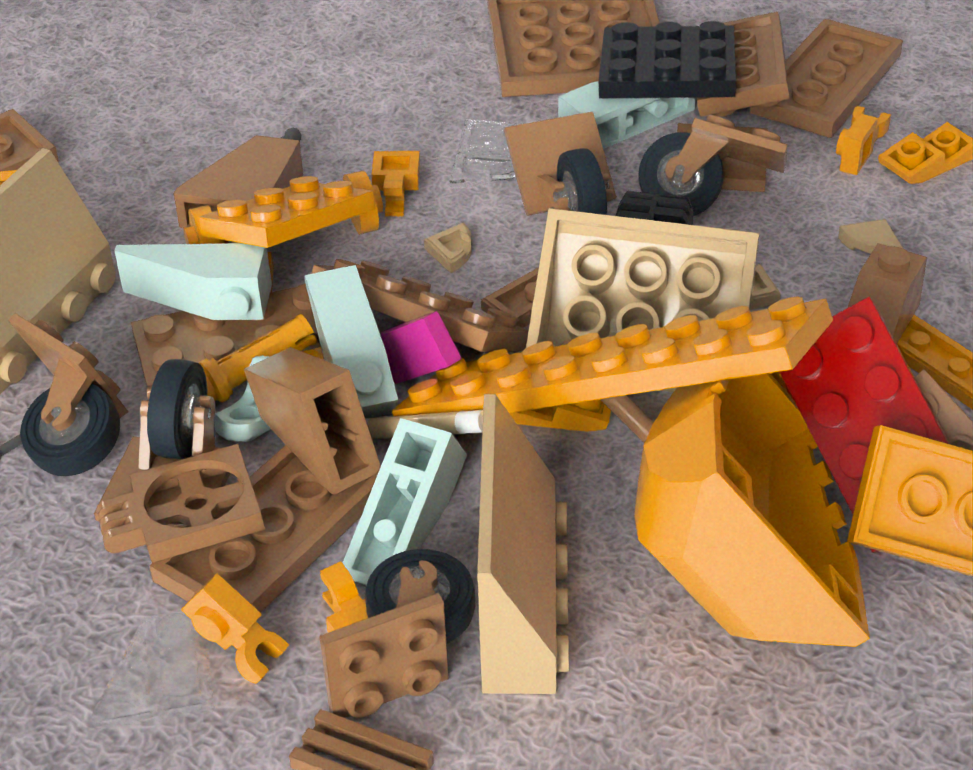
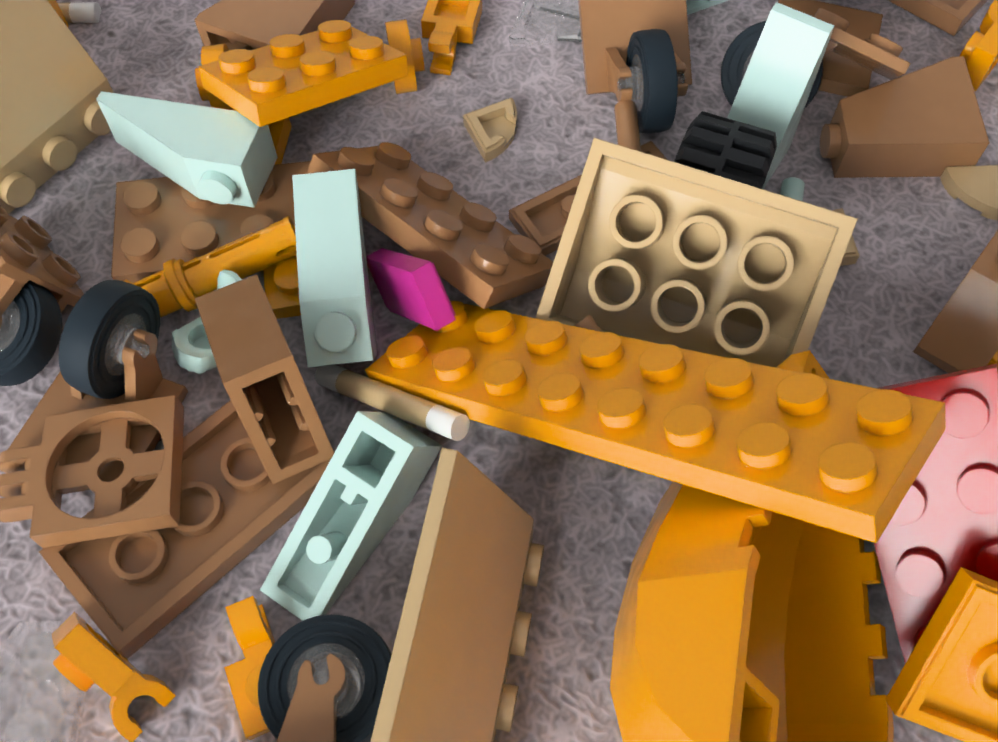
camera: 10 degrees right, 20 degrees up
(688, 160) = (781, 75): none -> light aqua slope
(801, 200) = (908, 126): none -> medium nougat slope

